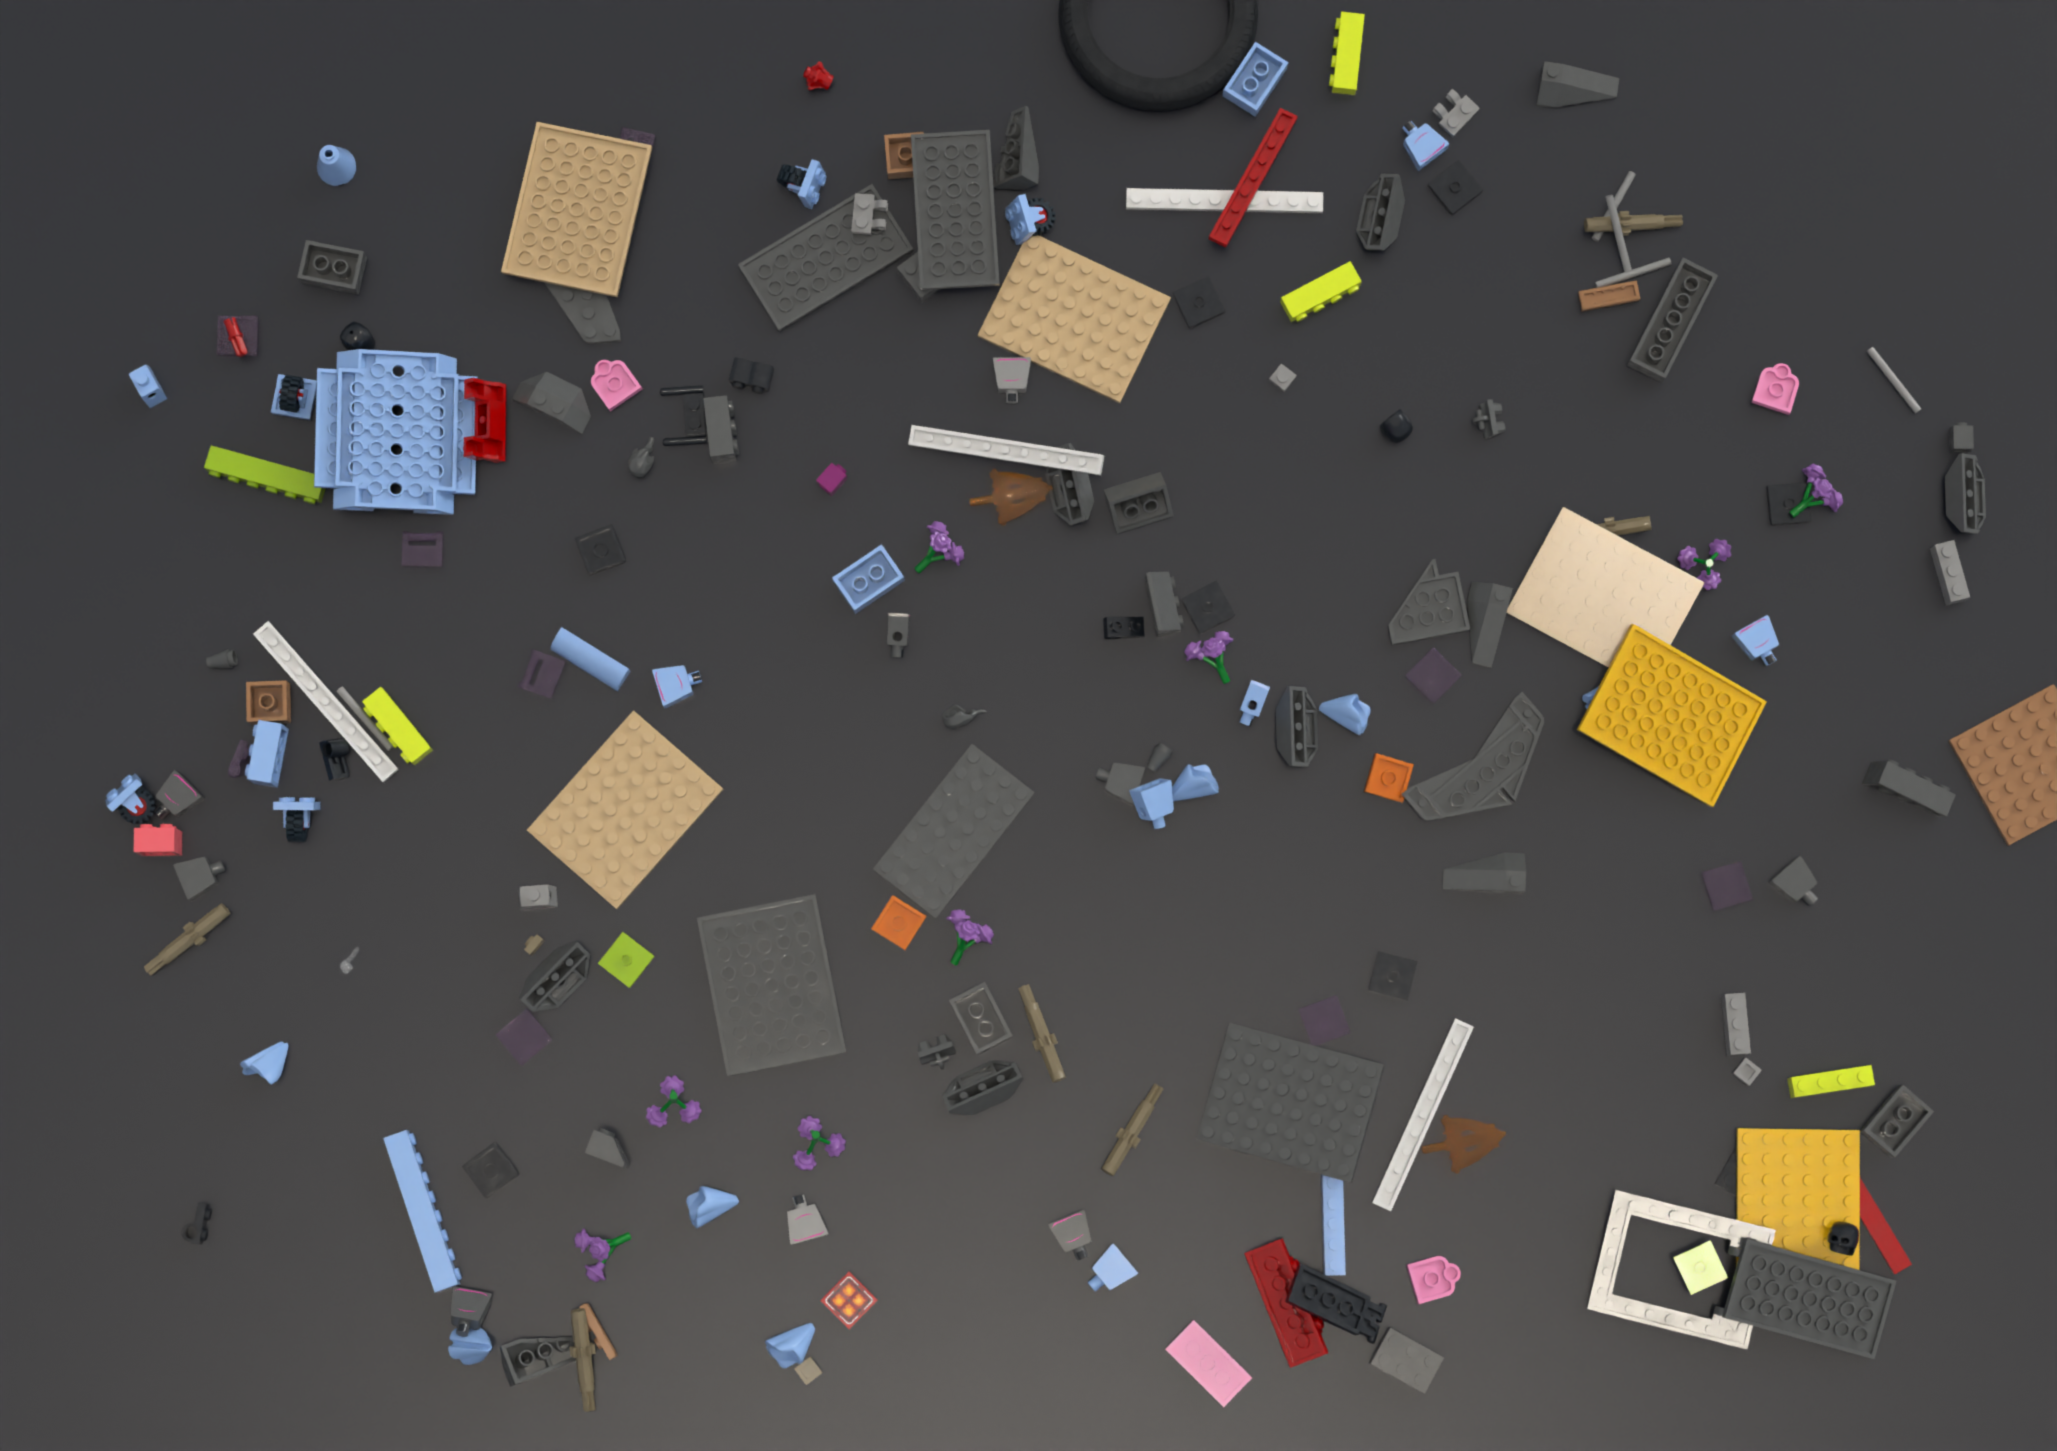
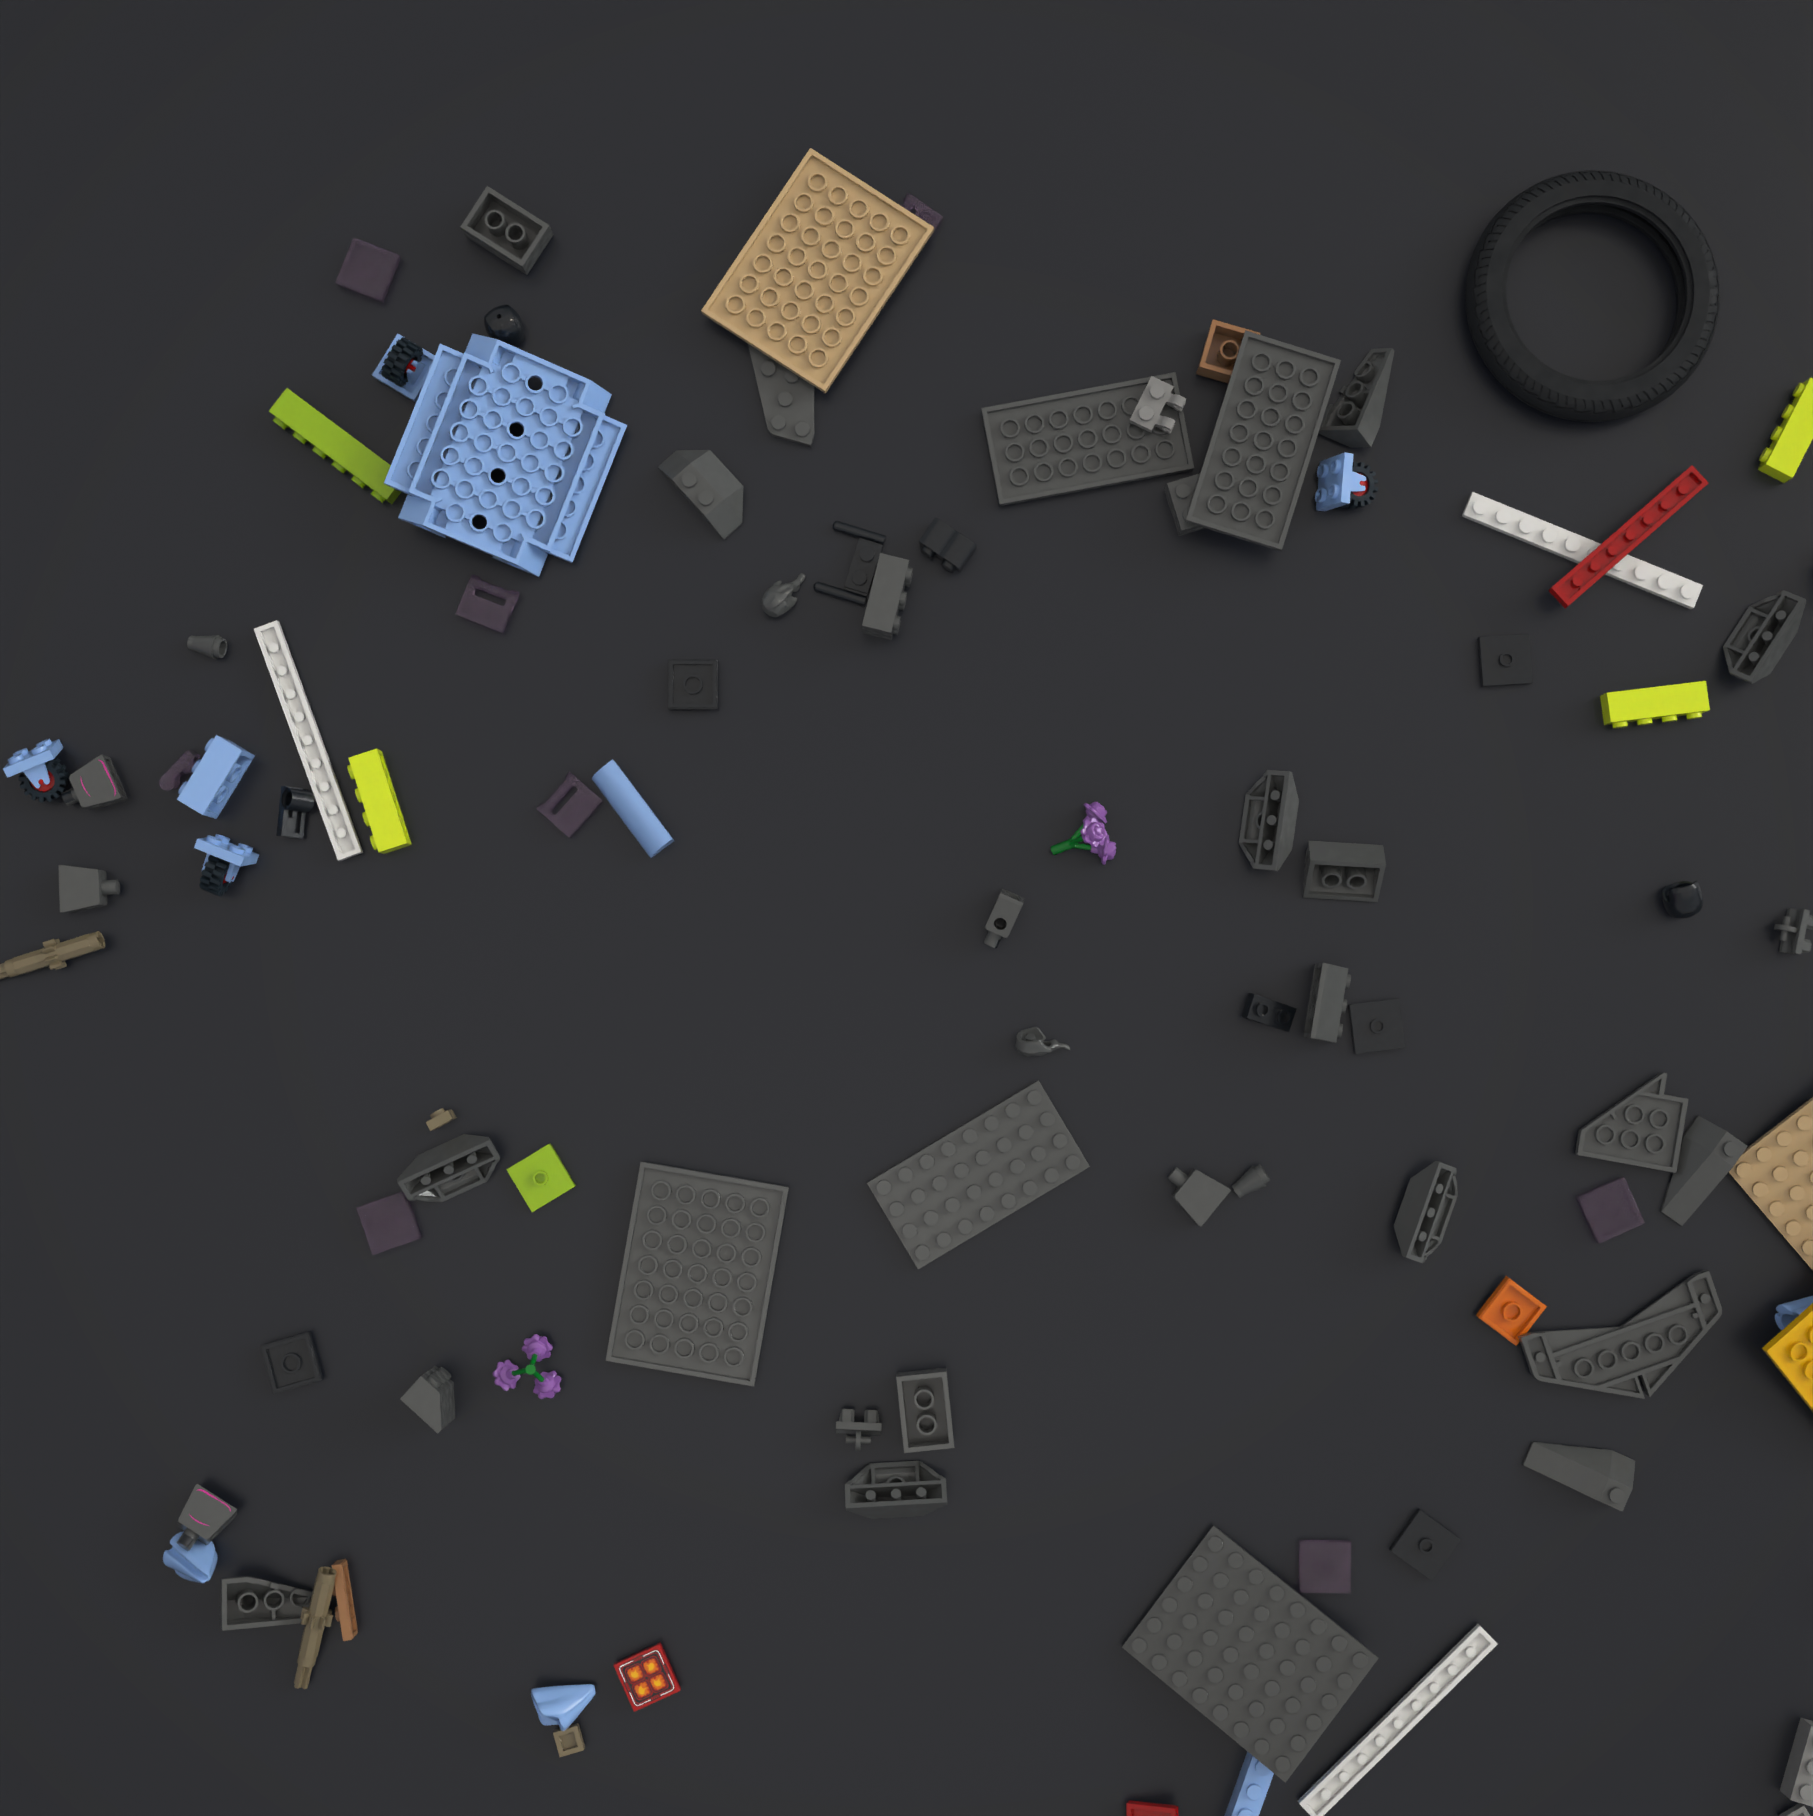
camera: 25 degrees right, 5 degrees up
(146, 385) = (238, 285): light blue torso -> none
(158, 841) = (52, 831): coral brick -> none
(235, 337) = (363, 270): red axle -> none
(267, 1063) = (81, 1140): light blue hat -> none
(268, 702) = (240, 716): medium nougat brick -> none
(335, 165) = (557, 110): light blue cone -> none
(345, 965) = (215, 1059): clear hand -> none
(365, 718) = (348, 782): light grey bar -> none
(422, 1211) = (195, 1380): light blue brick -> none
(489, 420) = (621, 482): red bracket -> none
(537, 897) = (466, 1066): light grey torso -> none
(600, 1250) = (377, 1510): medium lavender plant -> none
(614, 383) = (783, 493): bright pink plate -> none
(625, 809) = (606, 1001): tan plate -> none
(675, 684) = (719, 876): light blue torso -> none
(708, 1205) = (527, 1502): light blue hat -> none
(803, 181) = (1096, 338): light blue plate -> none
(805, 1221) = (631, 1566): light grey torso -> none
(810, 1129) = (678, 1459): medium lavender plant -> none
(817, 77) = (1160, 220): red rock -> none
(832, 478) = (995, 704): magenta brick -> none
(868, 579) = (992, 840): light blue brick -> none
(898, 922) = (873, 1258): orange plate -> none
(967, 931) = (948, 1305): medium lavender plant -> none
(1006, 450) = (1213, 751): white plate -> none
(1012, 376) = (1251, 664): light grey torso -> none
(1033, 490) = (1225, 809): clear orange bar -> none
(1044, 1040) = (989, 1462): dark tan piece -> none
(1072, 1233) = (935, 1701): torso -> none
(1074, 317) = (1351, 621): tan plate -> none
(1111, 1270) = (965, 1762): light blue torso -> none
(1128, 1136) = (1045, 1613): dark tan piece -> none
(1154, 801) = (1226, 1233): light blue torso -> none
(1194, 783) = (1280, 1228): light blue hat -> none
(1214, 648) = (1366, 1082): medium lavender plant -> none
(1255, 79) = (1676, 419): light blue brick -> none
(1257, 693) = (1393, 1150): light blue torso -> none
(1282, 377) = (1569, 787): light grey plate -> none
(1347, 712) = (1492, 1214): light blue hat -> none
(1486, 1137) = (1460, 1777): clear orange bar -> none

